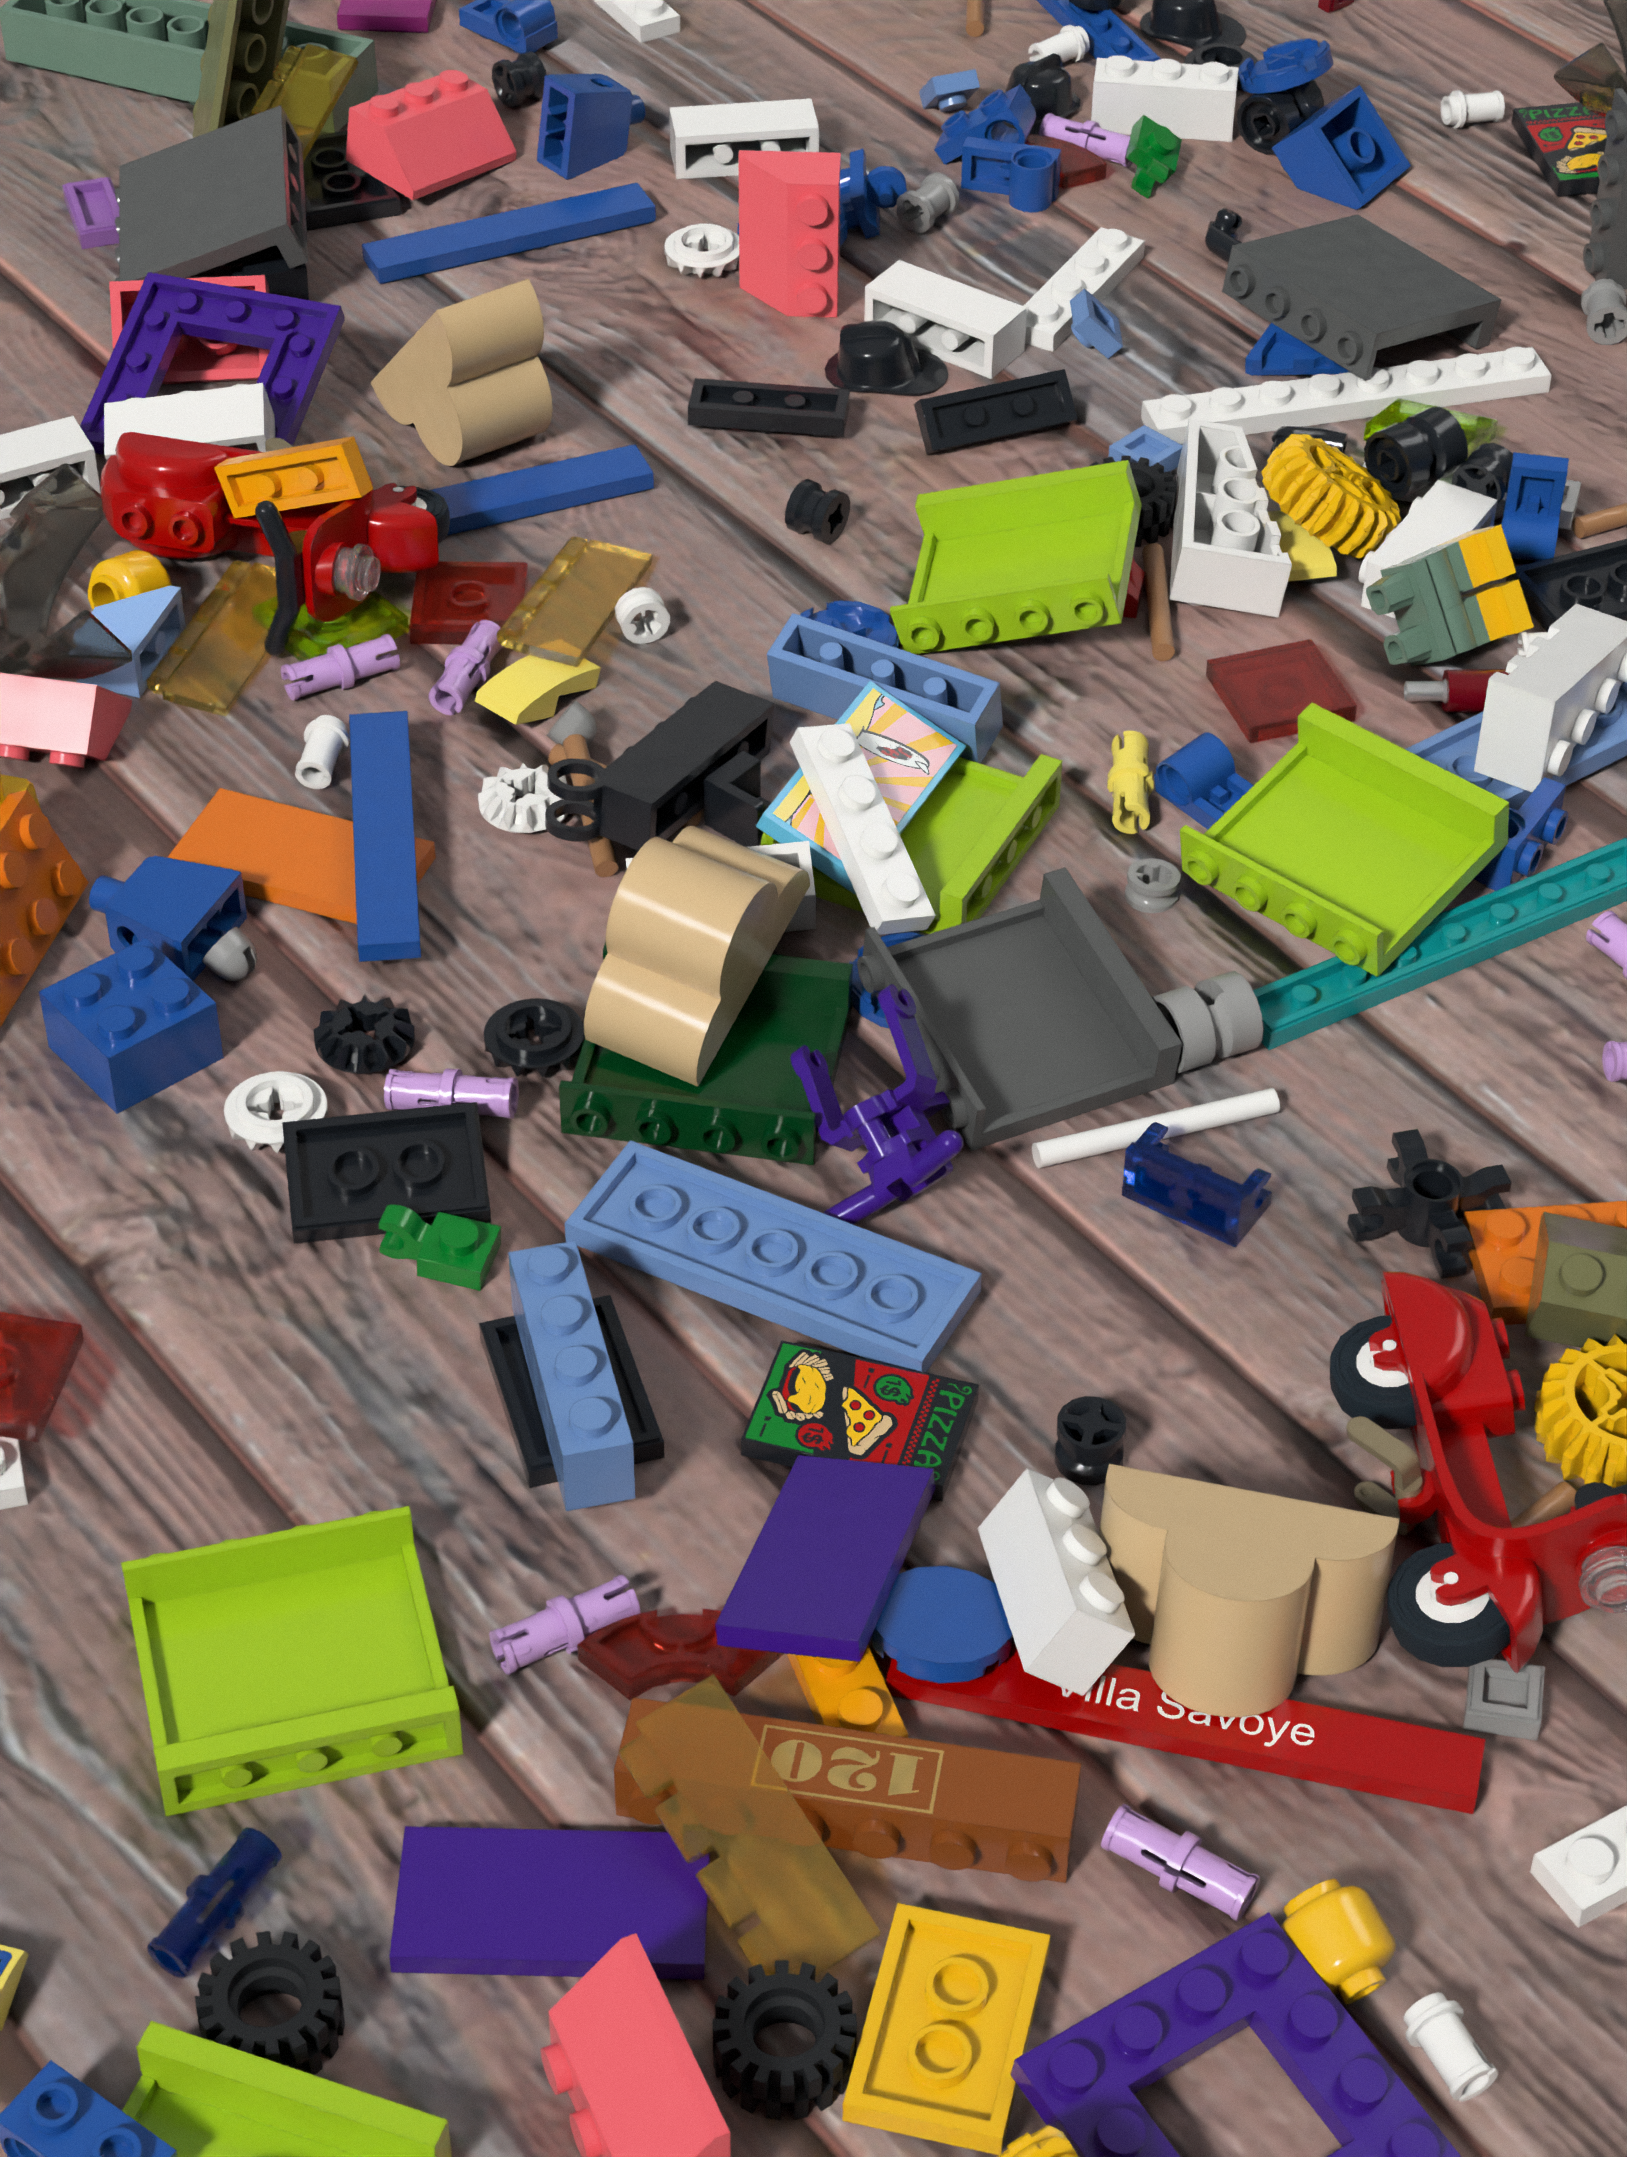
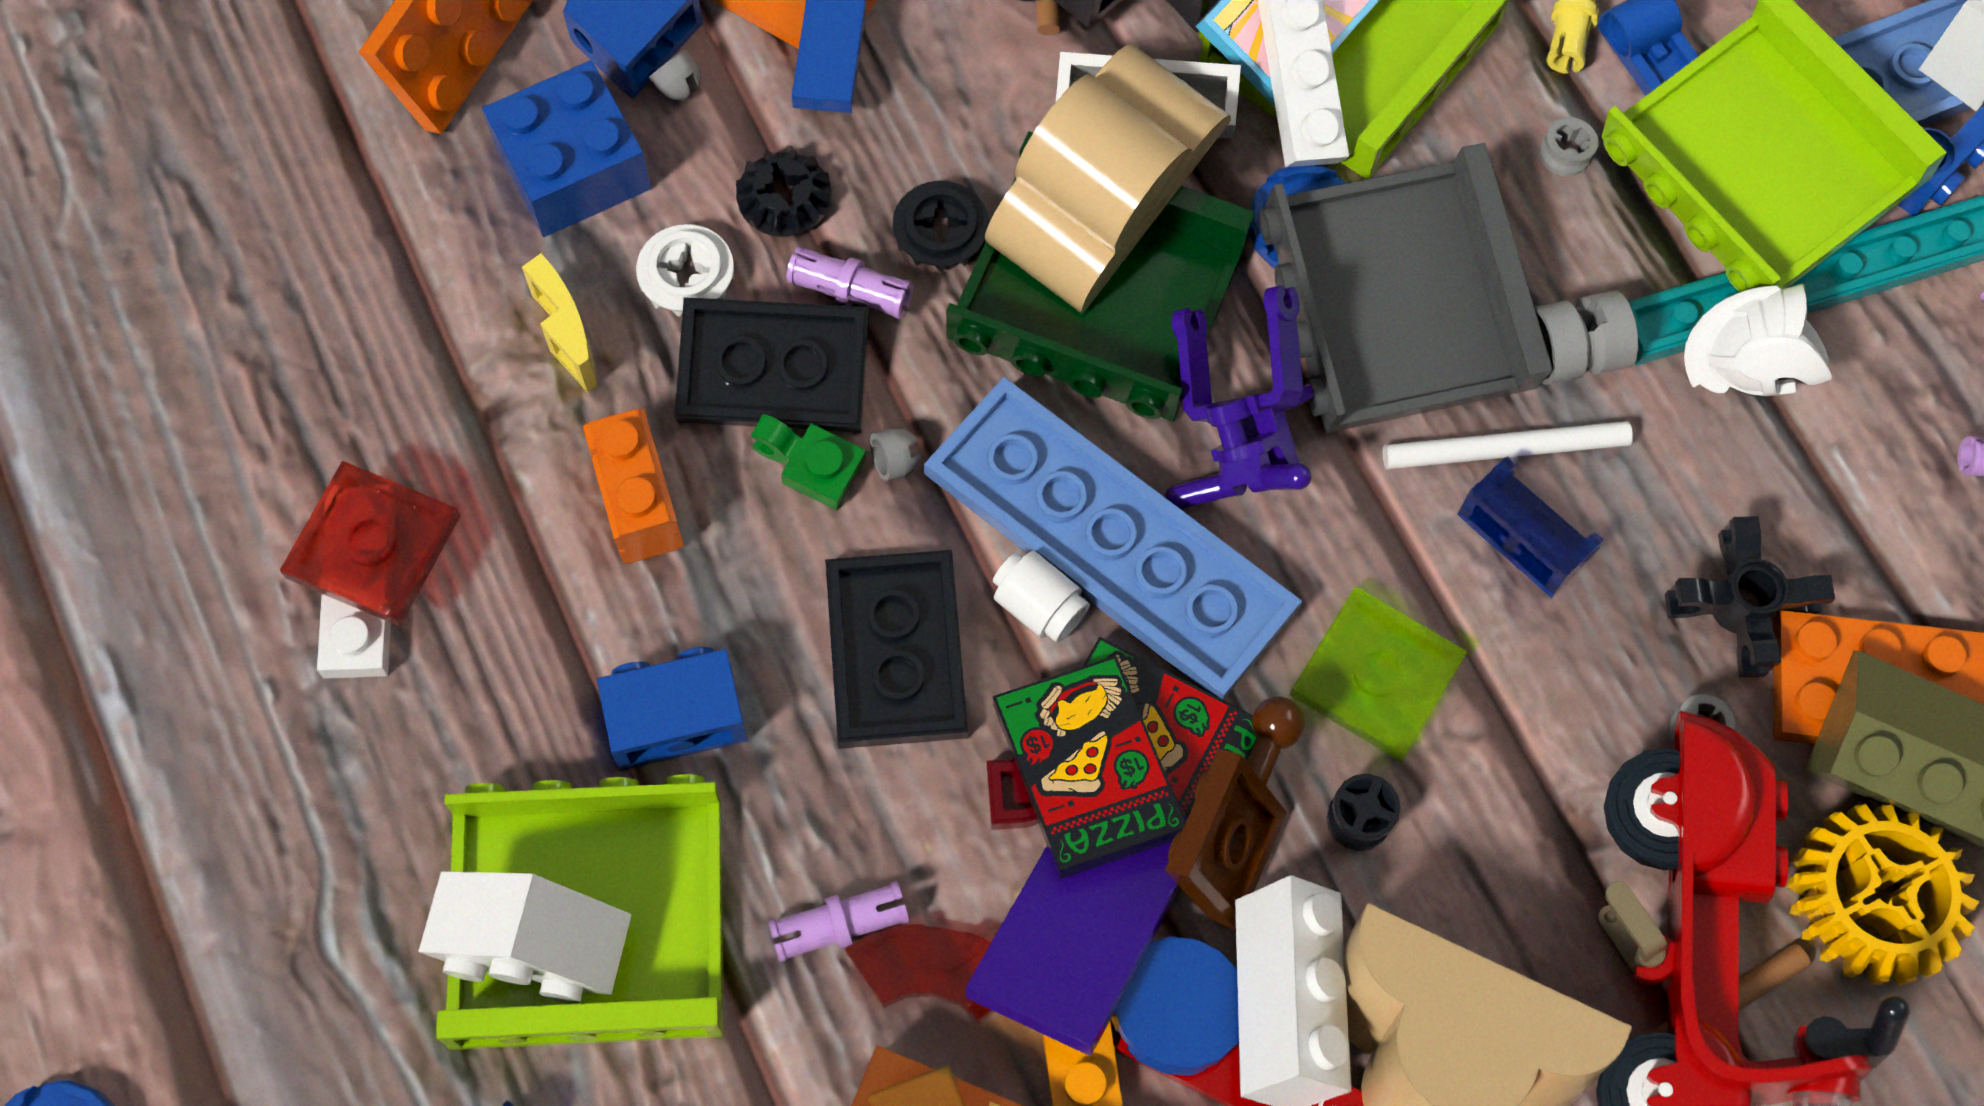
camera: 10 degrees right, 25 degrees up
(156, 1159) = (563, 327): none -> light yellow slope
(234, 1645) = (525, 931): none -> white brick
(264, 1287) = (633, 486): none -> orange brick
(348, 1464) = (671, 708): none -> blue brick
(528, 1224) = (892, 453): none -> light grey hinge
(572, 1376) = (891, 658): medium blue brick -> none
(711, 1314) = (1040, 596): none -> white brick
(729, 1489) = (1008, 797): none -> dark red tile
(798, 1435) = (1089, 766): none -> tile
(952, 1455) = (1235, 817): none -> reddish brown plate
(1075, 1331) = (1378, 673): none -> clear neon green tile
(1371, 994) = (1754, 342): none -> white helmet

